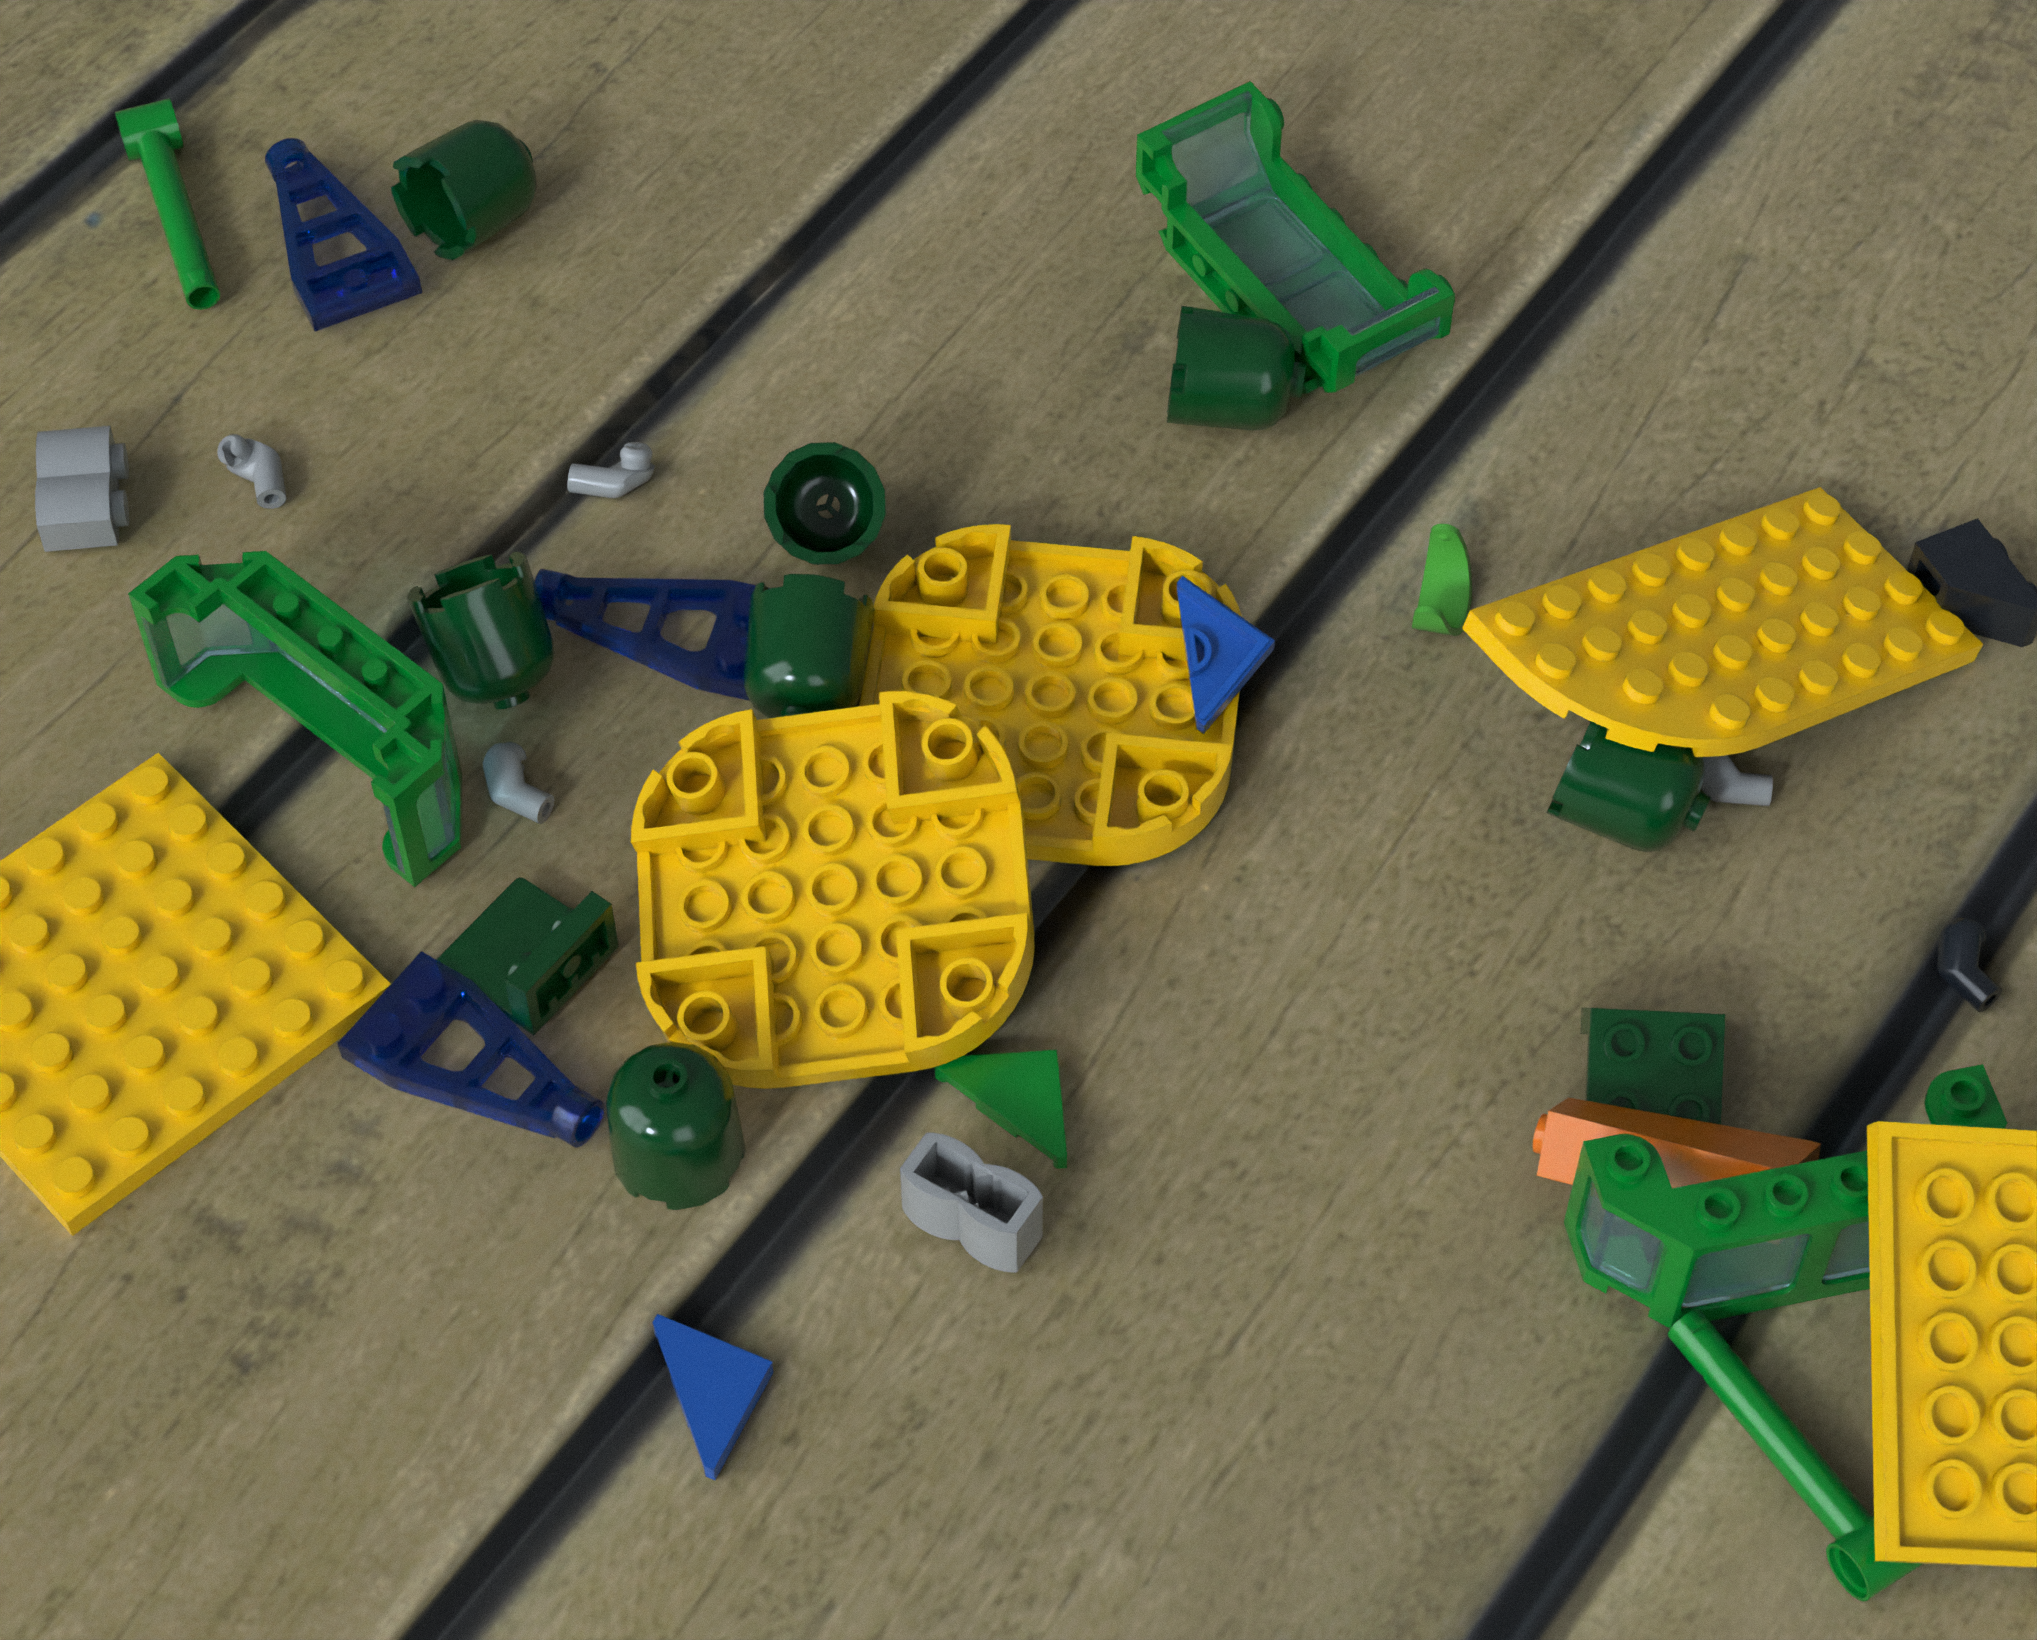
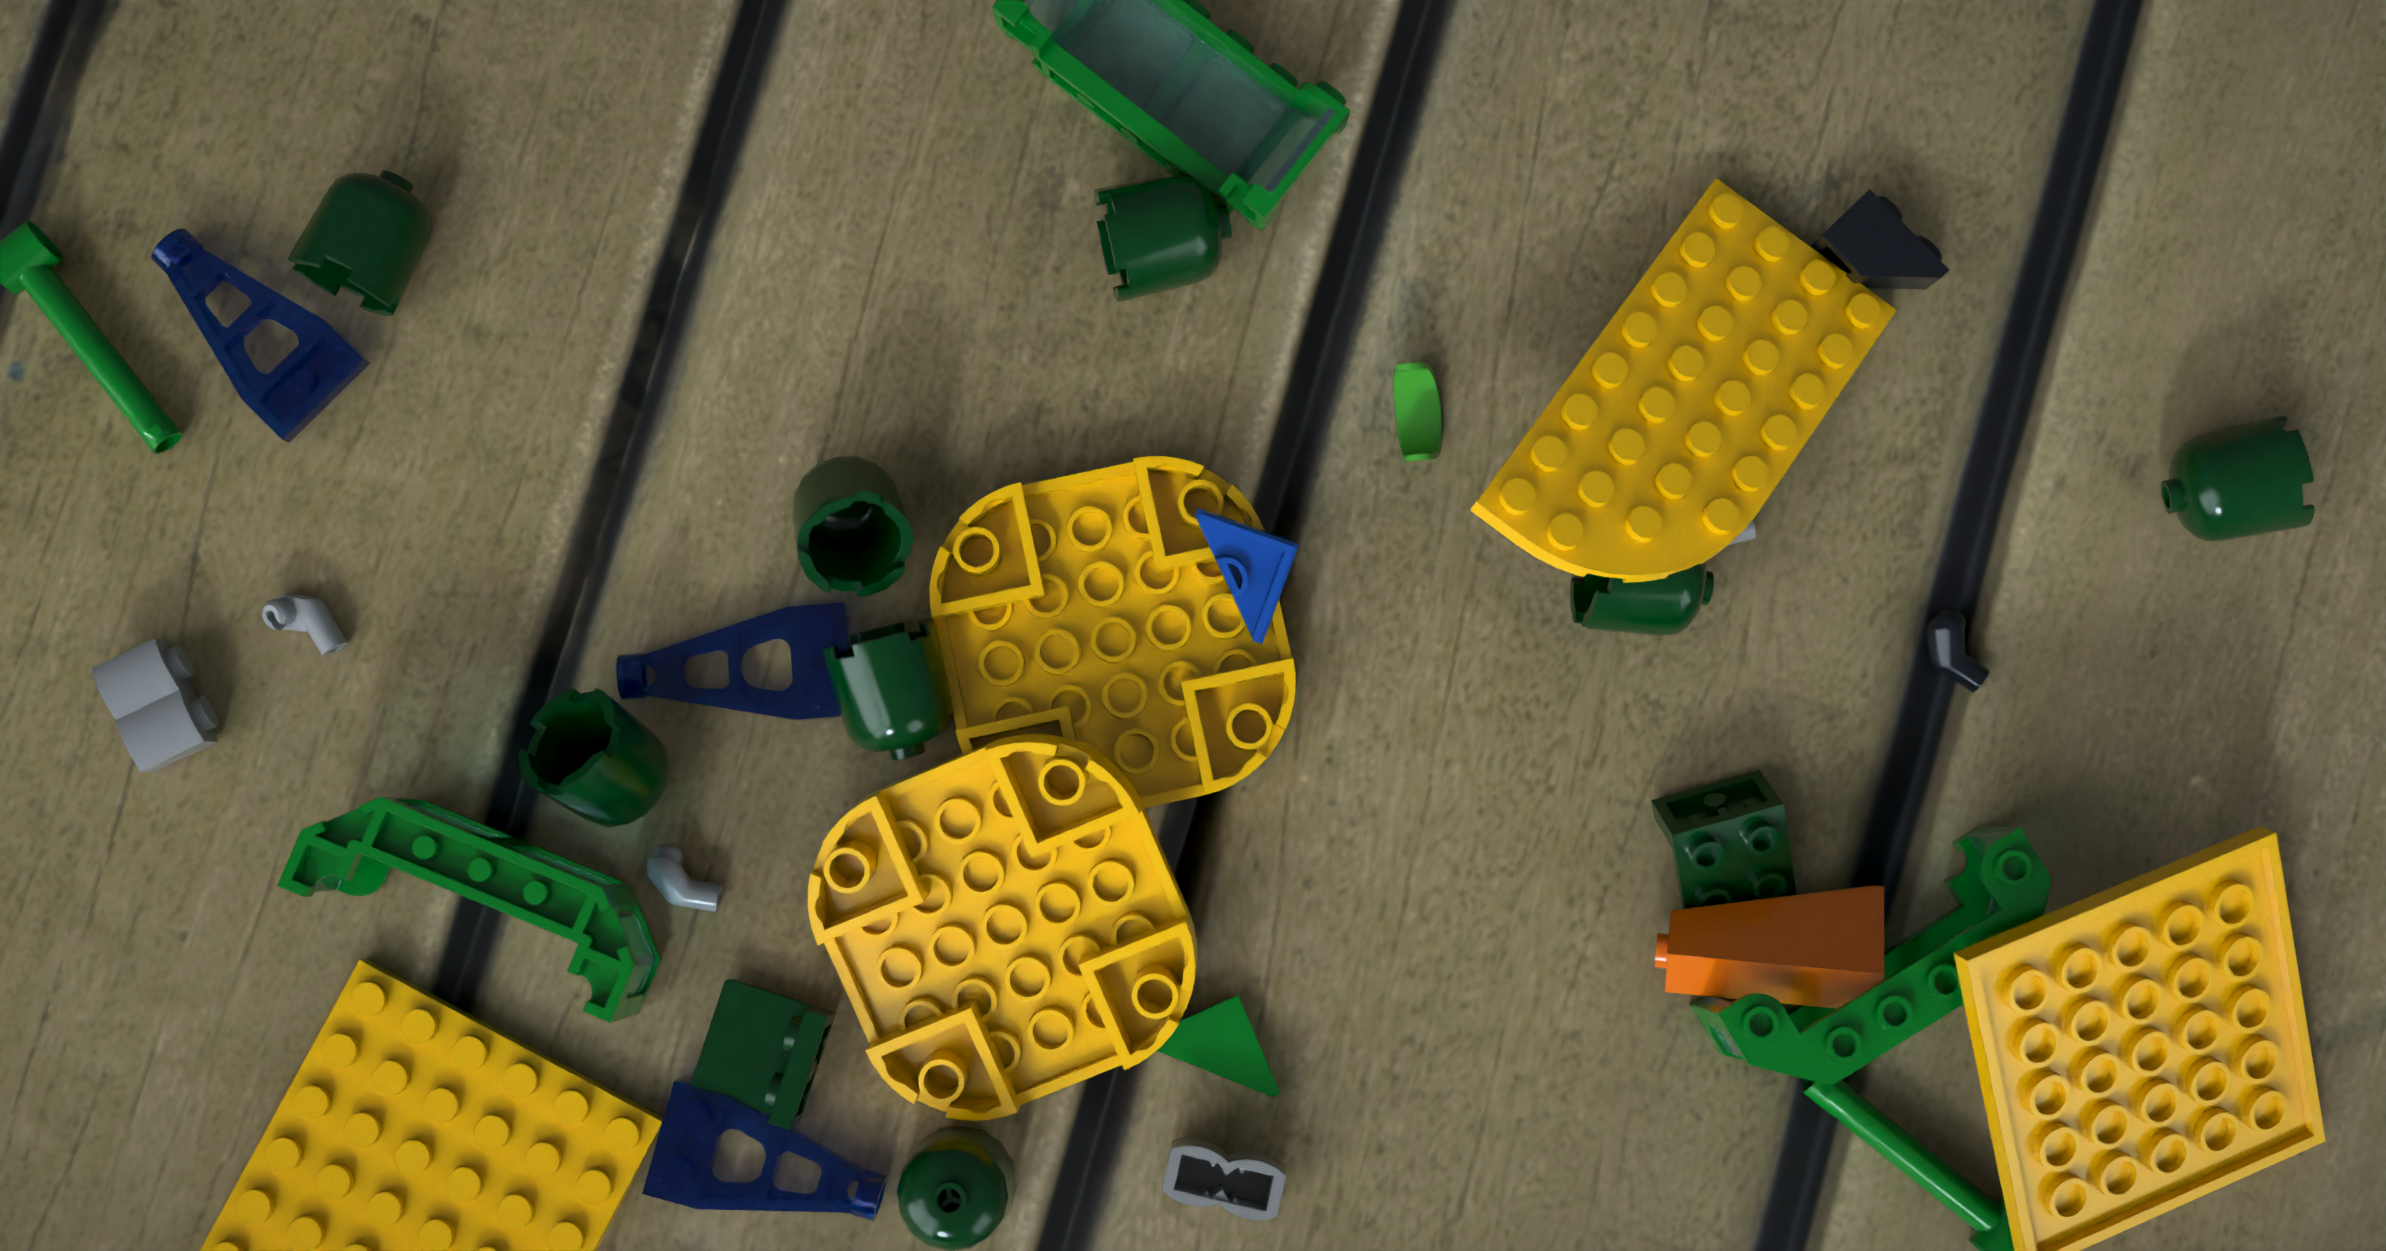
camera: 25 degrees left, 30 degrees up
(616, 480) = (640, 522): light grey arm -> none

